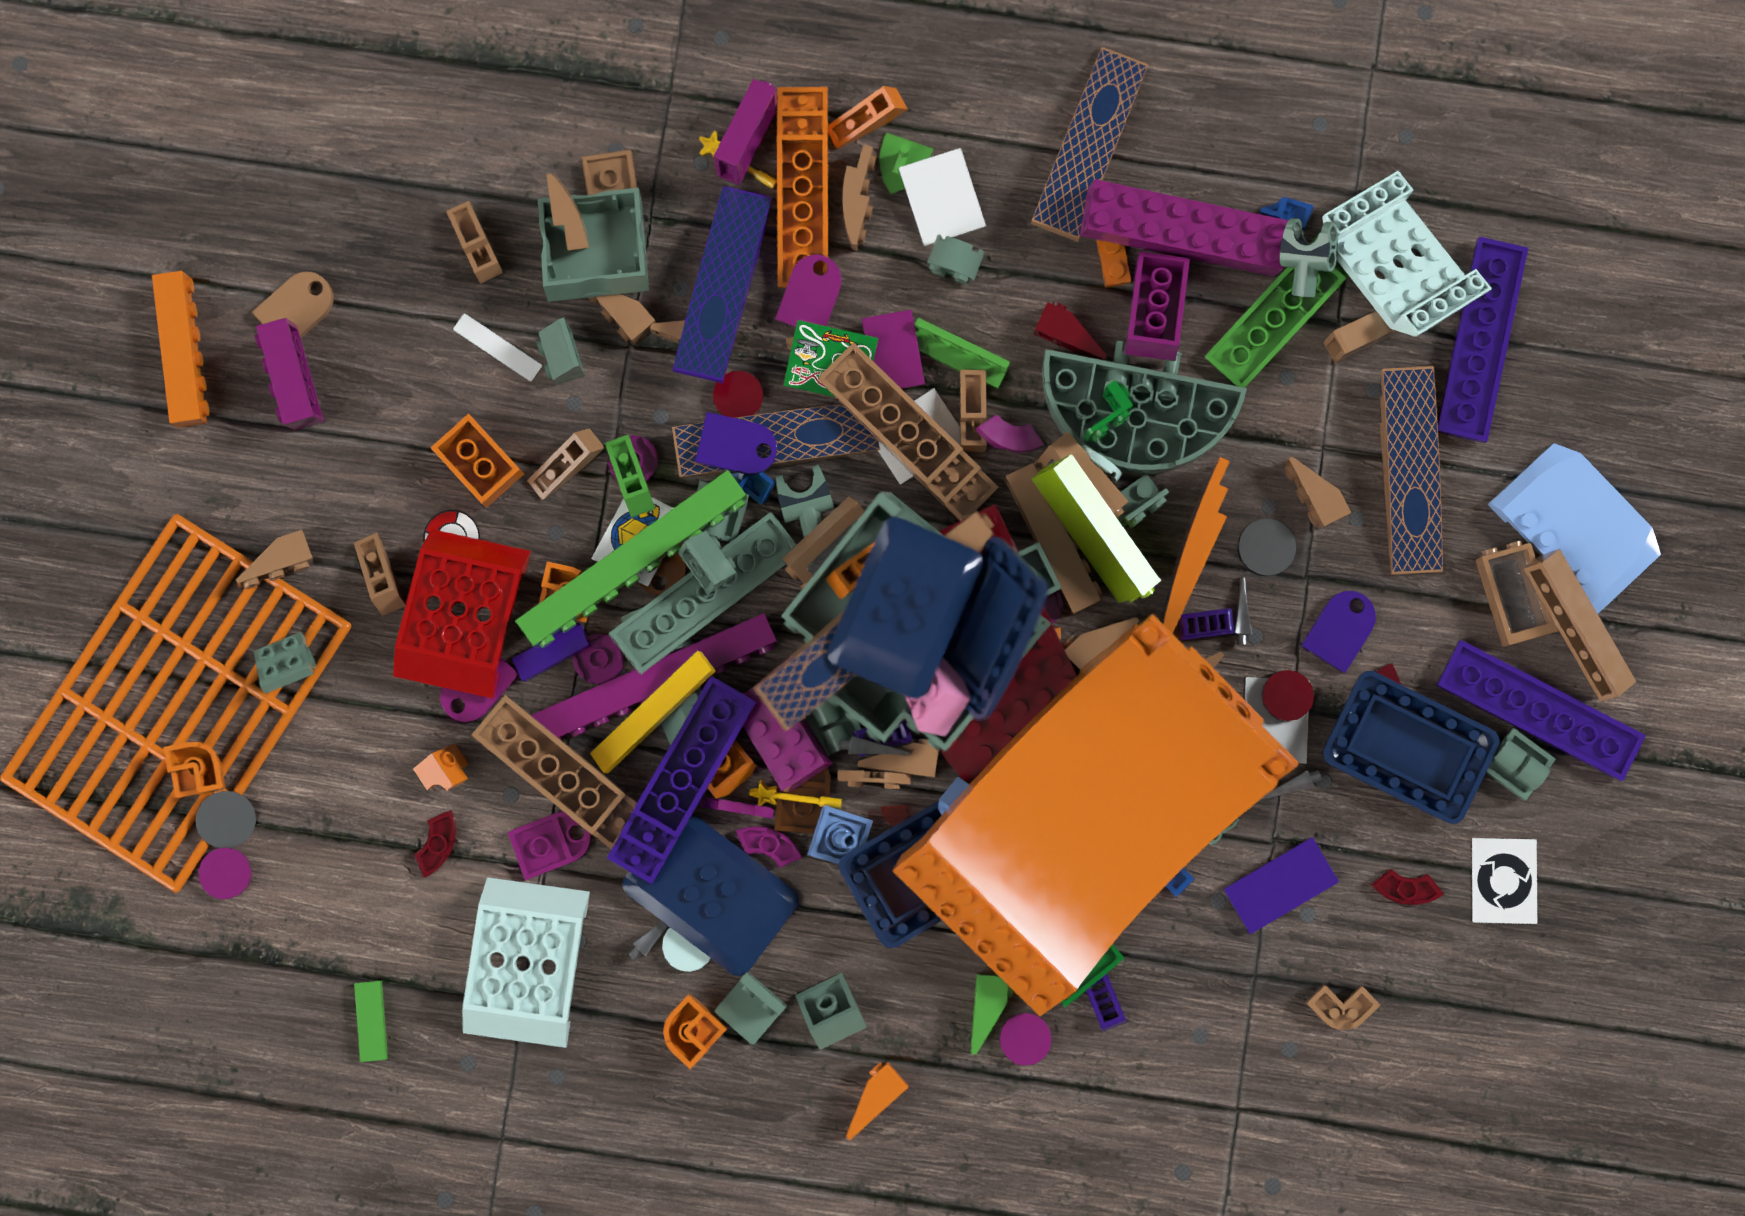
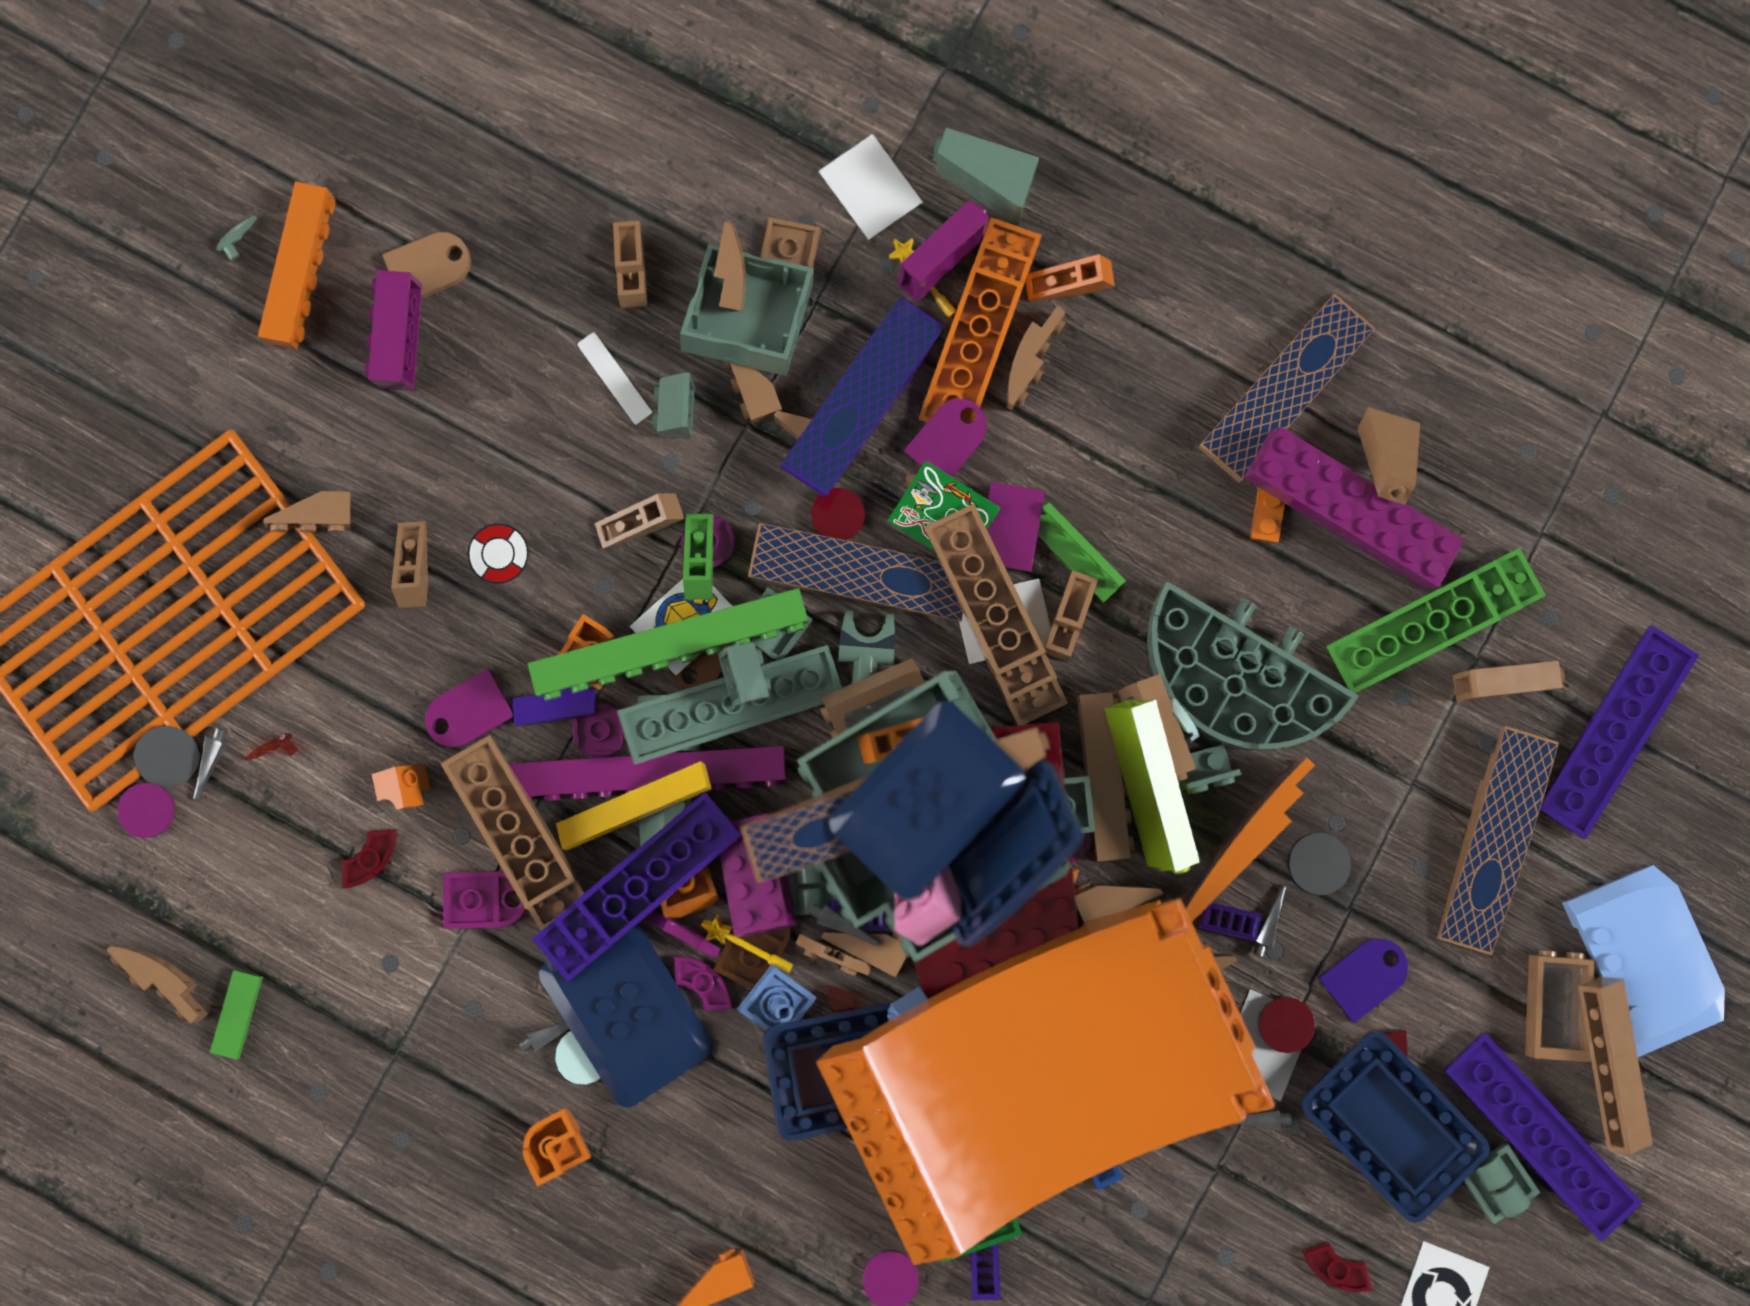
camera: 15 degrees right, 0 degrees up
(113, 343) = (233, 236): none -> sand green bar
(194, 769) = (151, 694): orange brick -> none
(264, 799) = (212, 751): none -> flat silver piece
(281, 1012) = (152, 971): none -> medium nougat slope
(284, 662) = (281, 619): sand green plate -> none
(315, 776) = (272, 745): none -> clear red bar
(449, 648) = (461, 670): red slope -> none
(477, 460) = (551, 485): orange brick -> none
(530, 923) = (438, 980): light aqua slope -> none
(661, 98) = (870, 186): none -> white sticker
(733, 445) = (814, 564): dark purple tile -> none
(750, 1008) = (623, 1144): sand green bracket -> none
(757, 486) = (821, 610): blue slope -> none
(759, 48) = (987, 171): none -> sand green slope
(830, 1011) = (702, 1177): sand green slope -> none
(898, 153) = (1089, 337): bright green shield -> none
(942, 196) = (1117, 387): white sticker -> none
(954, 258) = (1107, 455): sand green brick -> none
(989, 1002) = (864, 1233): bright green slope -> none
(1008, 437) = (1097, 657): magenta tile -> none
(1064, 330) = (1192, 566): dark red slope -> none
(1117, 398) = (1223, 662): green bracket -> none
(1157, 306) = (1297, 578): magenta brick -> none
(1199, 167) = (1391, 453): none -> medium nougat slope
(1280, 885) = (1209, 1218): dark purple tile -> none
(1288, 209) = (1467, 528): blue slope -> none
(1307, 257) = (1470, 585): sand green connector -> none
(1322, 498) = (1393, 833): medium nougat slope -> none
(1384, 228) = (1552, 581): light aqua slope -> none

